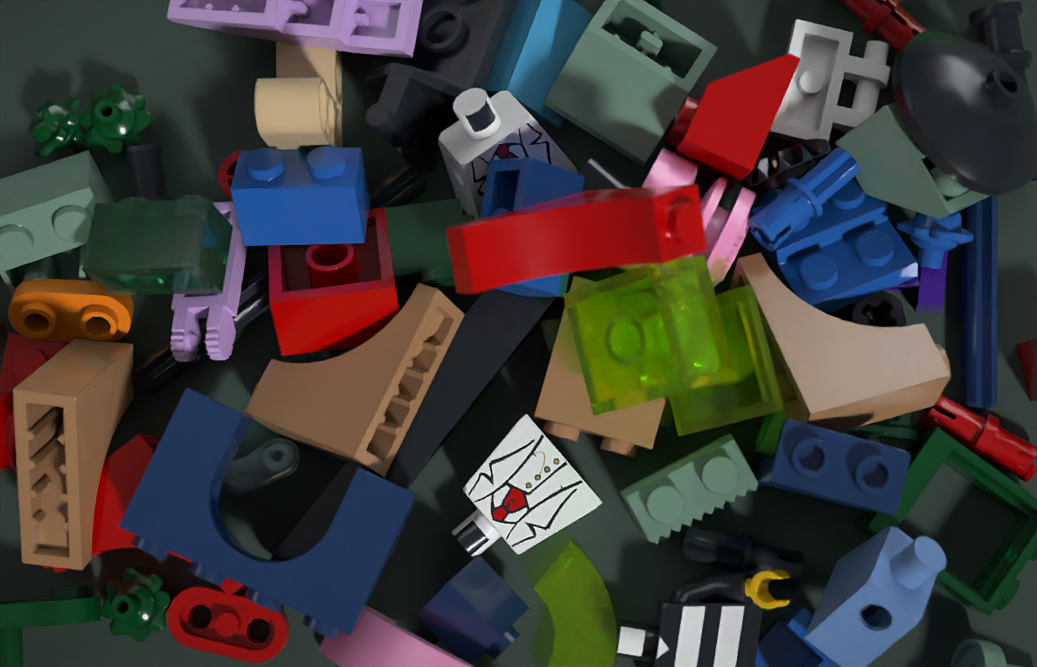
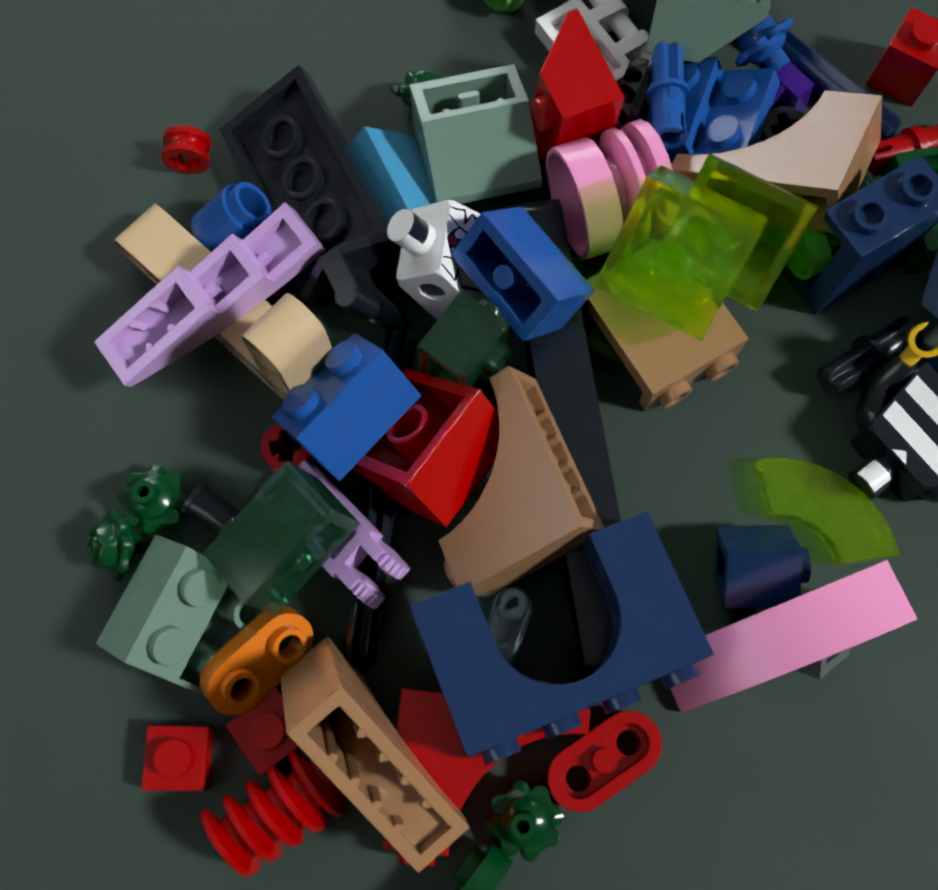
camera: 50 degrees left, 10 degrees down
(523, 493) = (697, 456): white torso -> none
(577, 235) = (578, 214): red arch -> none
(689, 488) = (795, 346): sand green brick -> none

